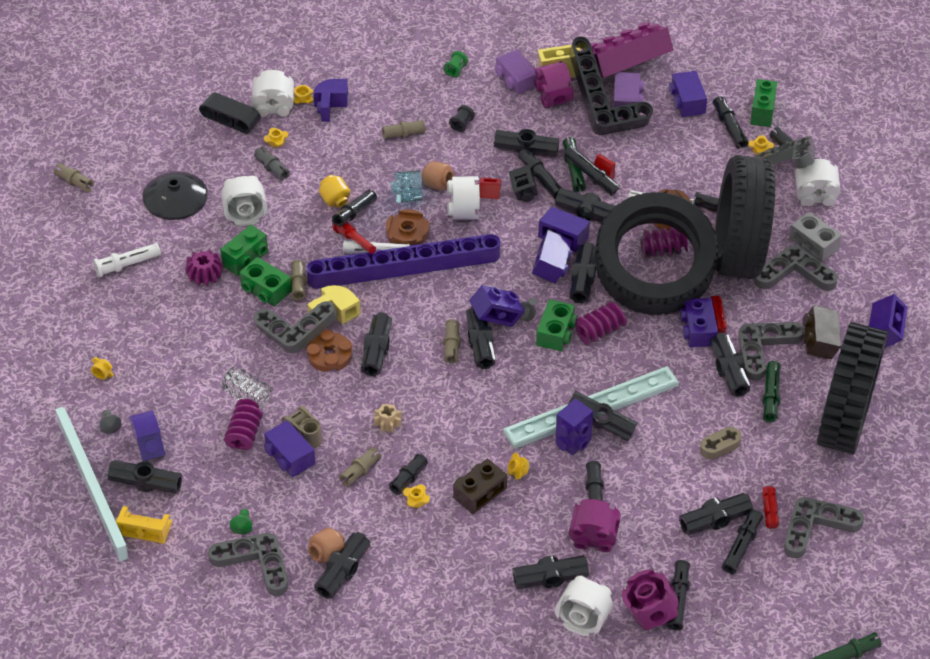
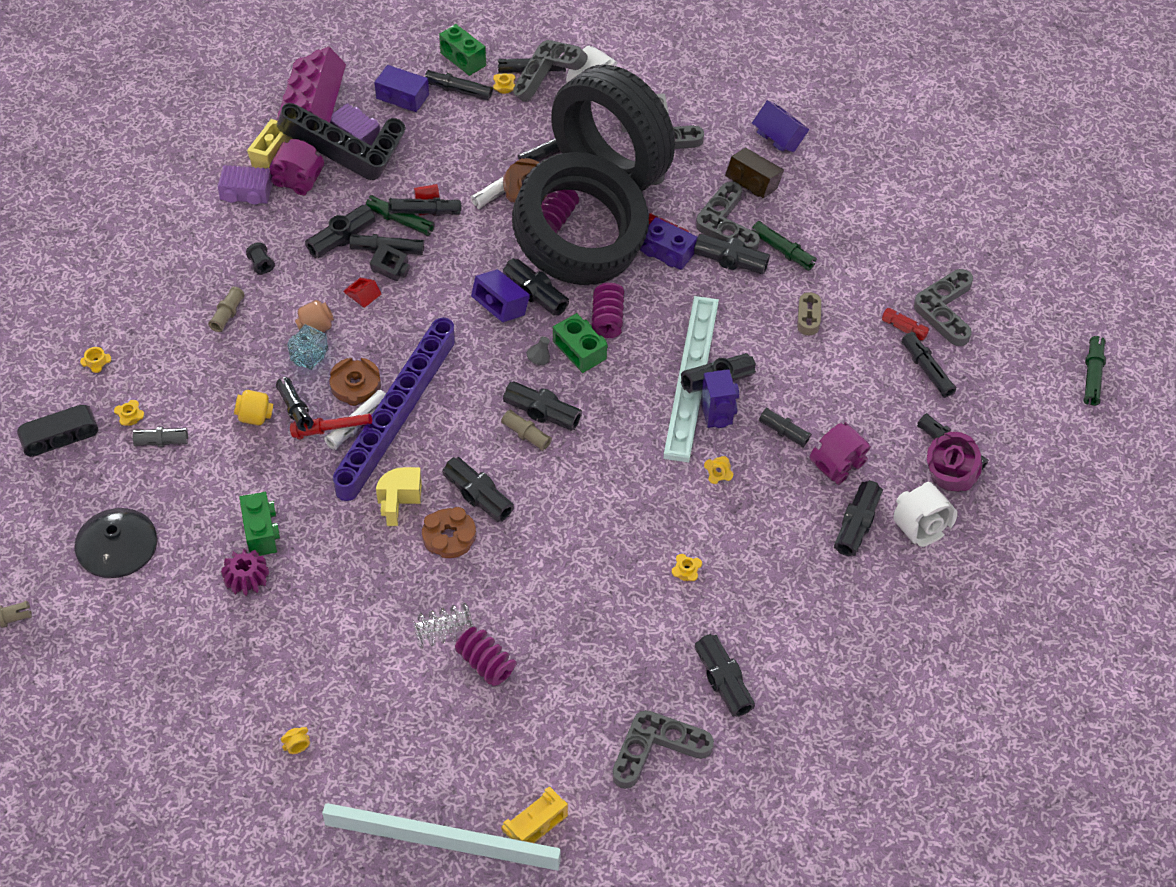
camera: 55 degrees left, 5 degrees up
(109, 422) = (371, 774): dark grey rock -> none
(116, 262) = (161, 643): white pin -> none
(145, 476) = (462, 792): black piece -> none
(147, 433) = (422, 743): dark purple brick -> none
(241, 523) = (602, 729): green rock -> none
(243, 200) = (196, 484): white brick -> none
(265, 281) = (314, 527): green brick -> none
(272, 93) = (77, 378): white brick -> none
(289, 449) = (550, 634): dark purple brick -> none
(294, 333) = (402, 548): dark grey beam -> none
(298, 280) = (336, 504): dark tan pin -> none
(306, 426) = (527, 607): dark tan piece -> none
(324, 544) = (692, 674): nougat head -> none
(330, 94) = (124, 338): dark purple brick -> none
(359, 467) = (615, 591): dark tan pin -> none
(387, 417) = (577, 533): tan gear -> none
(408, 474) = (656, 558): black pin -> none
(455, 64) = (184, 218): green bush -> none
(464, 198) = (369, 313): white brick -> none
(479, 486) = (719, 511): dark brown brick -> none
(496, 305) = (524, 368): dark purple brick -> none
(565, 225) = (473, 263): dark purple brick -> none
(585, 206) = (461, 236): black piece -> none
(715, 513) = (886, 363): black piece -> none
(852, 388) = (886, 168): black tyre -> none

